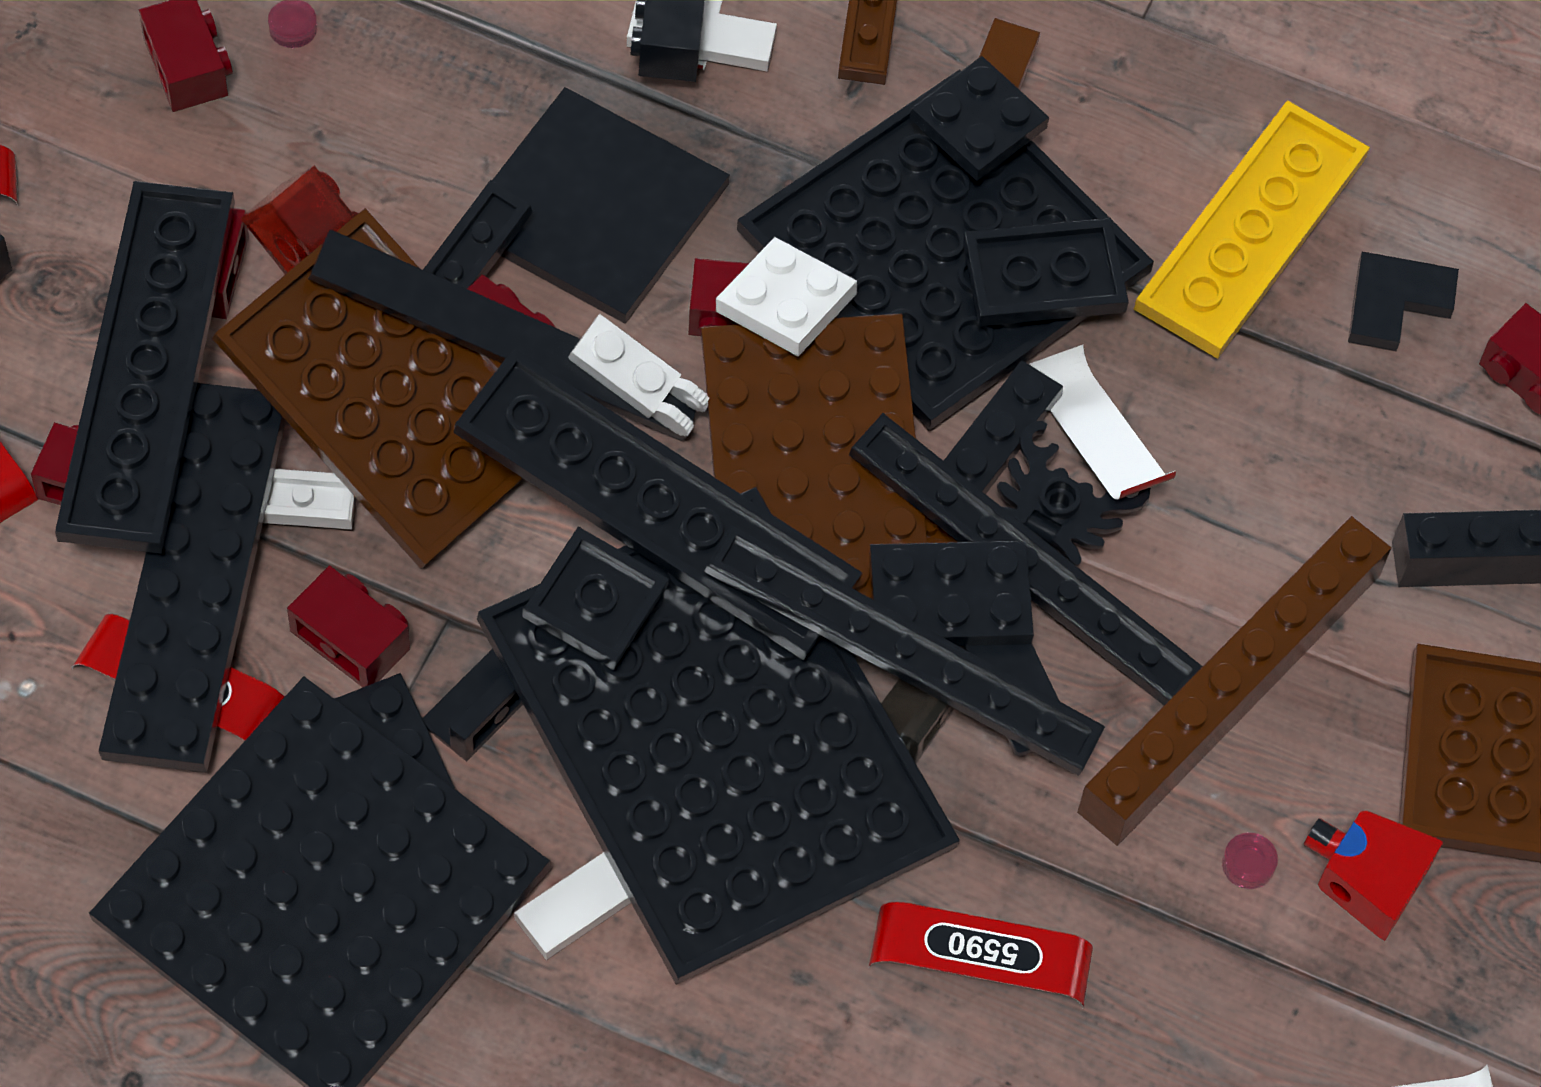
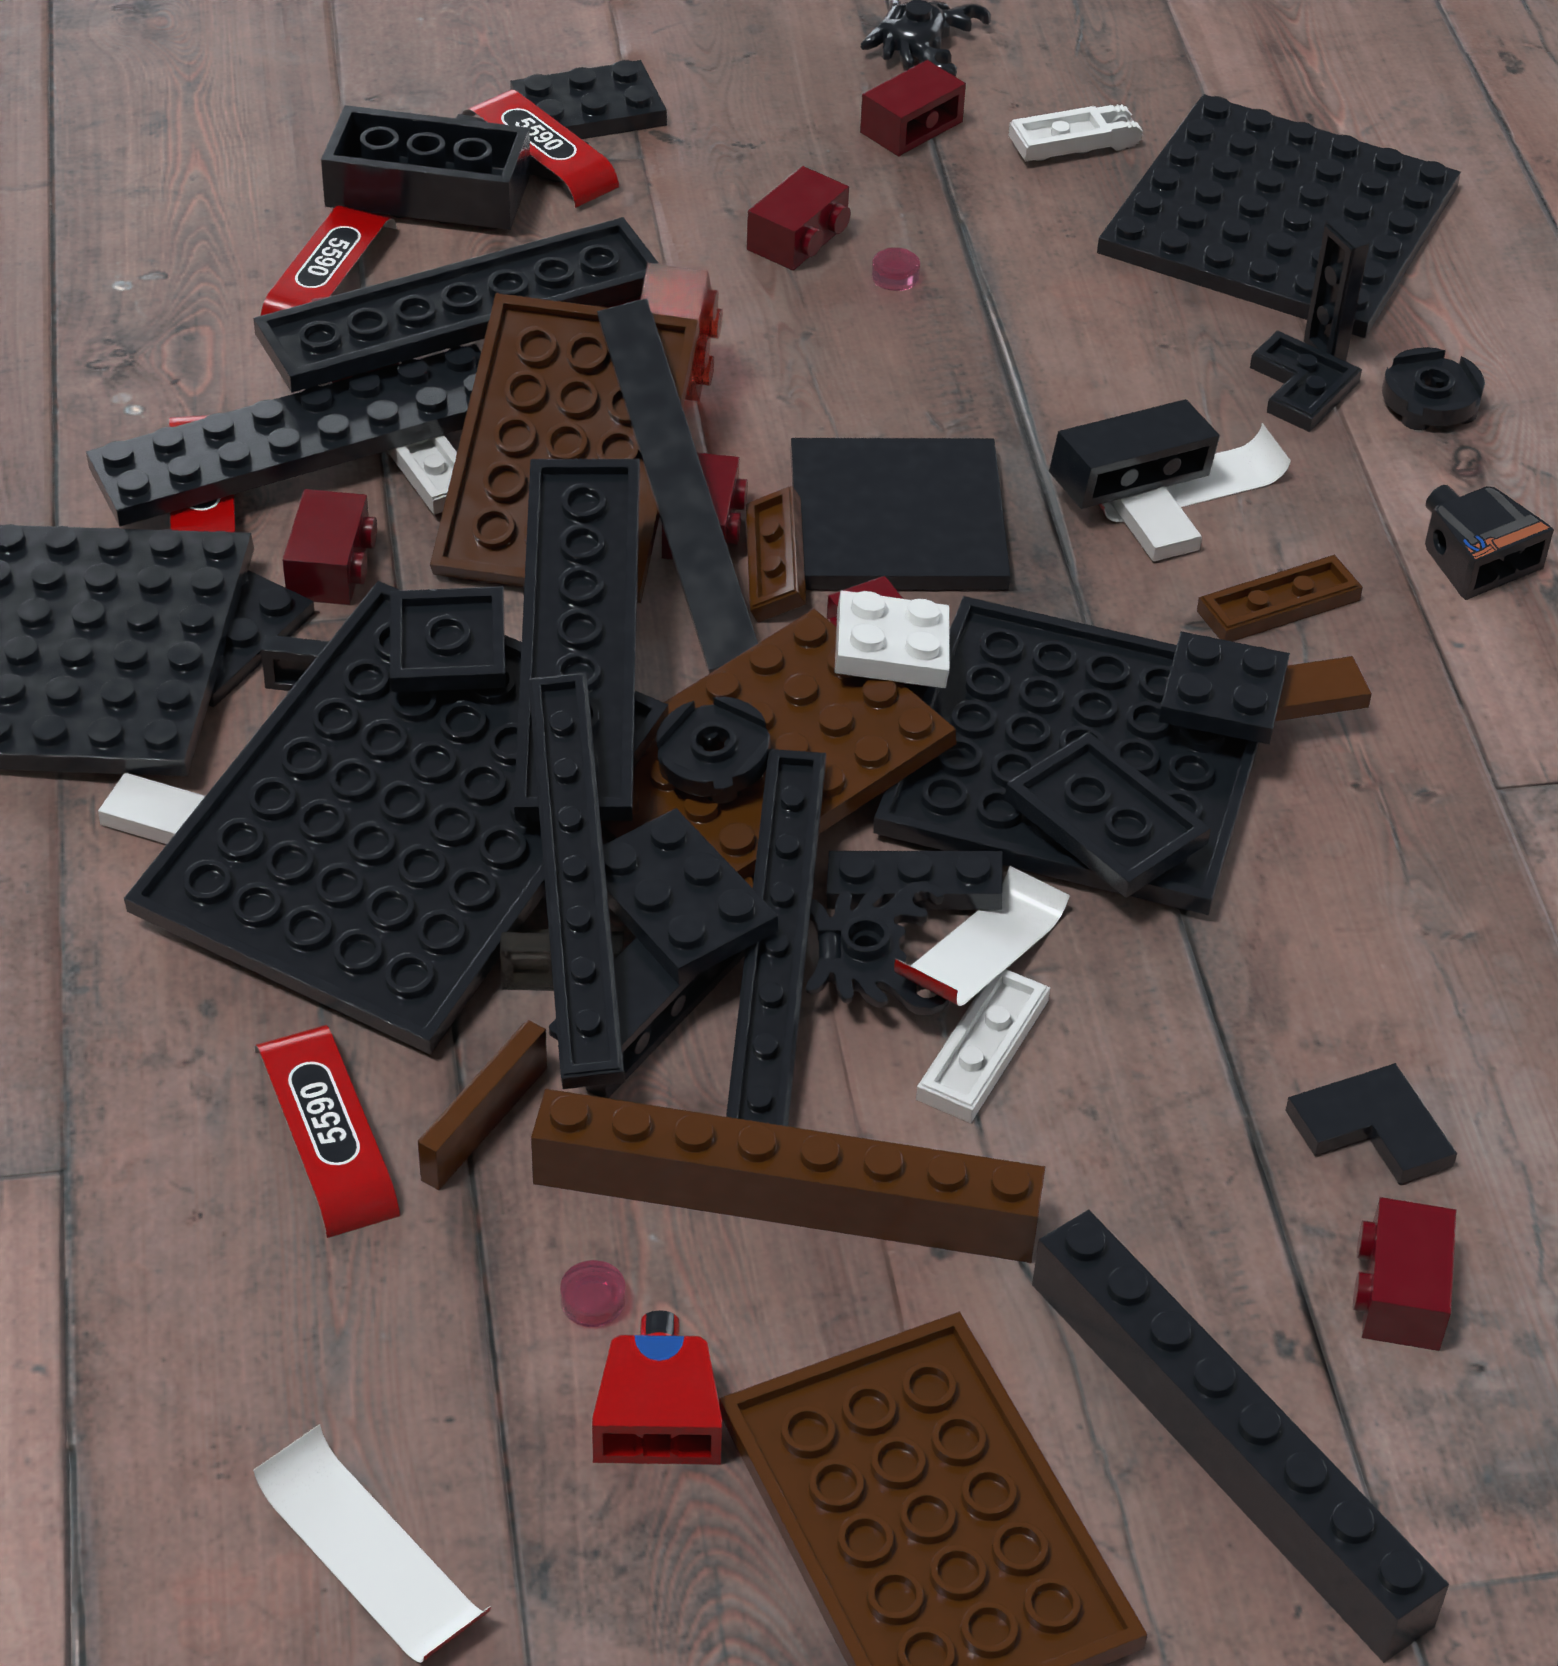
camera: 60 degrees right, 15 degrees down
(480, 236) = (775, 445): black plate -> none
(576, 306) = (775, 554): none -> reddish brown tile
(637, 375) = (723, 584): white hinge -> none
(828, 458) = (713, 773): none -> black plate
(1042, 837) = (482, 1104): none -> reddish brown tile
(1187, 498) = (982, 1045): none -> white tile
(1251, 229) = (1334, 964): yellow plate -> none

